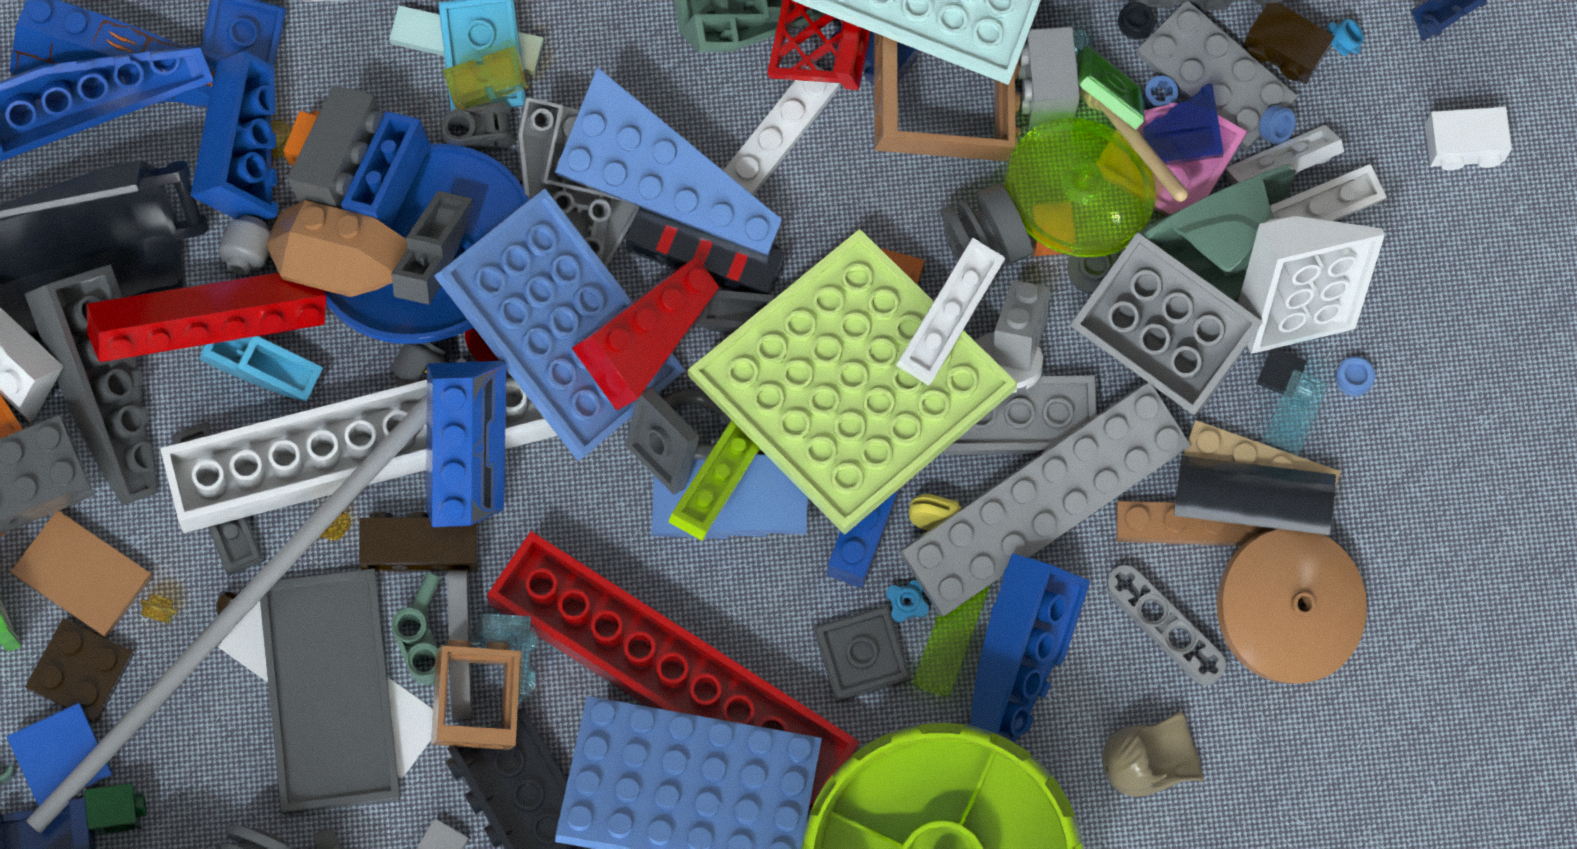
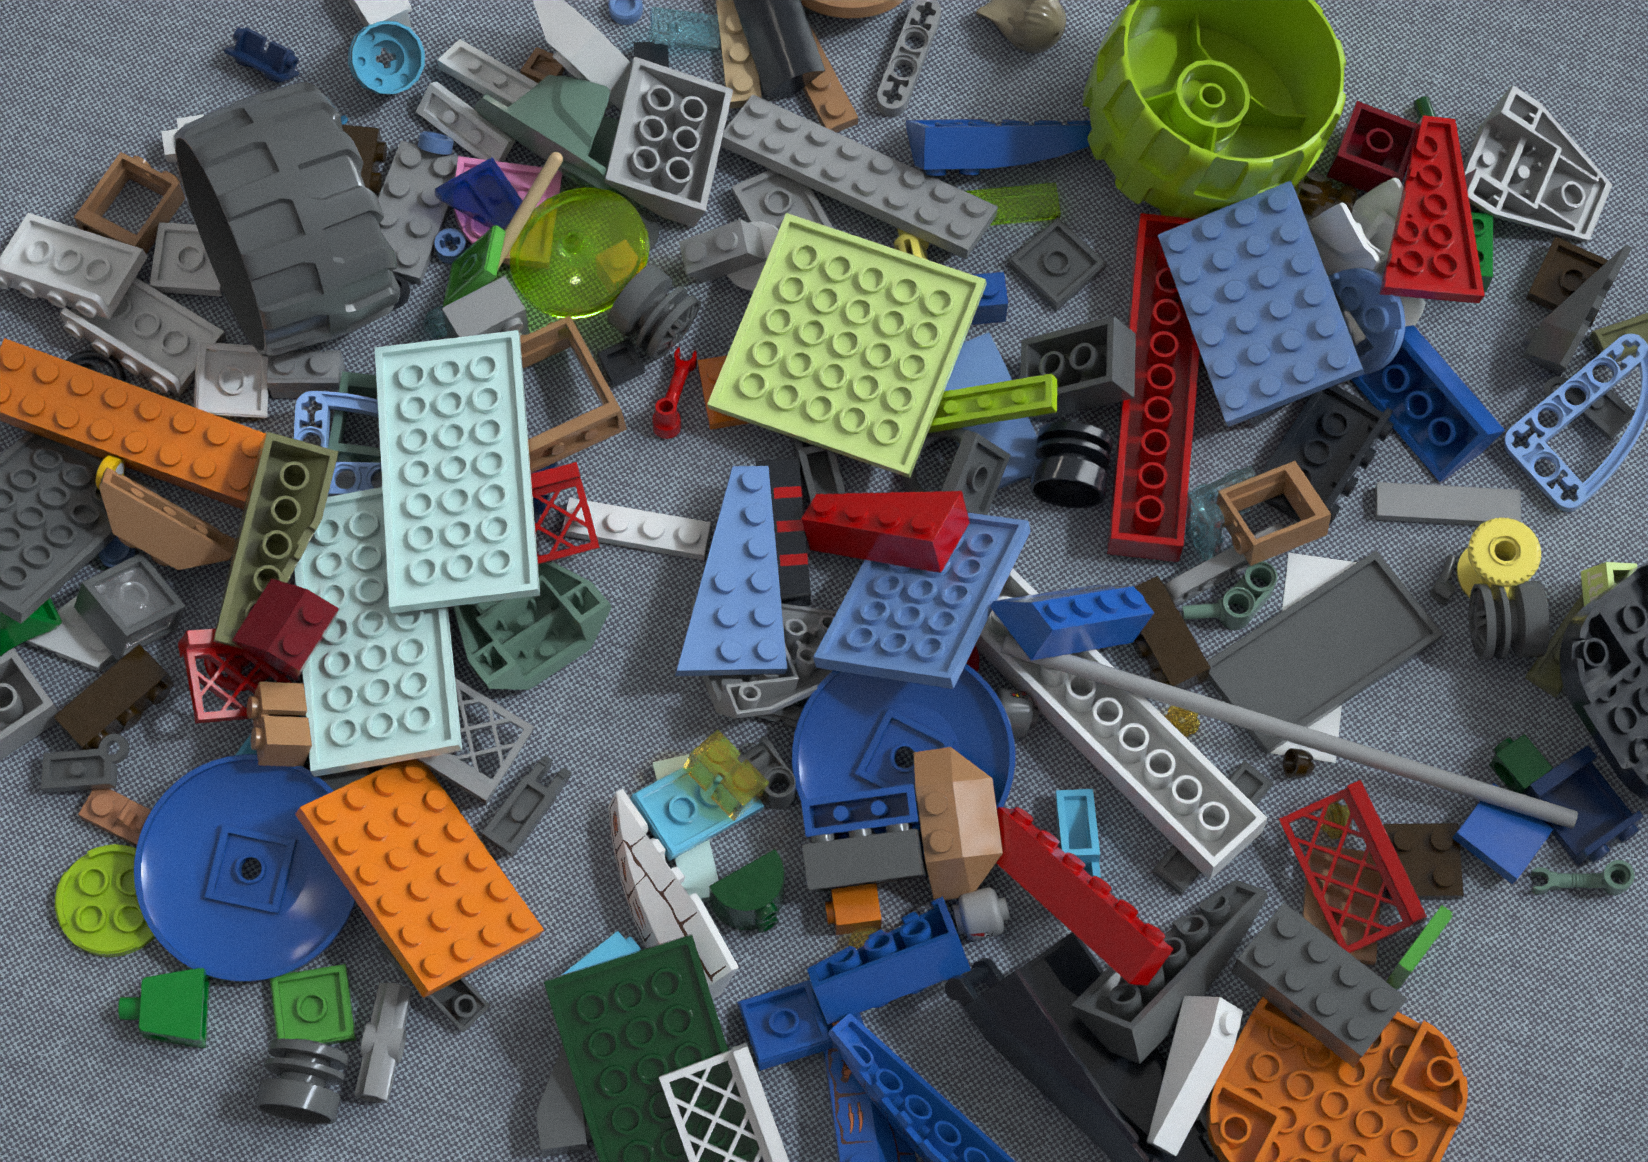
camera: 115 degrees left, 5 degrees down
(92, 621) = (1382, 853): none -> red fence
(364, 51) = (751, 894): none -> dark green brick
(431, 247) = (910, 732): dark grey slope -> none
(623, 535) = (1071, 465): none -> black wheel
(721, 591) = (1088, 360): none -> dark grey brick
(872, 211) = (666, 419): none -> red brick
(902, 611) = (993, 256): dark azure plate -> none
(950, 311) = (752, 285): white plate -> none
(956, 185) = (621, 362): none -> black plate
(1385, 105) = (401, 71): none -> medium azure wheel

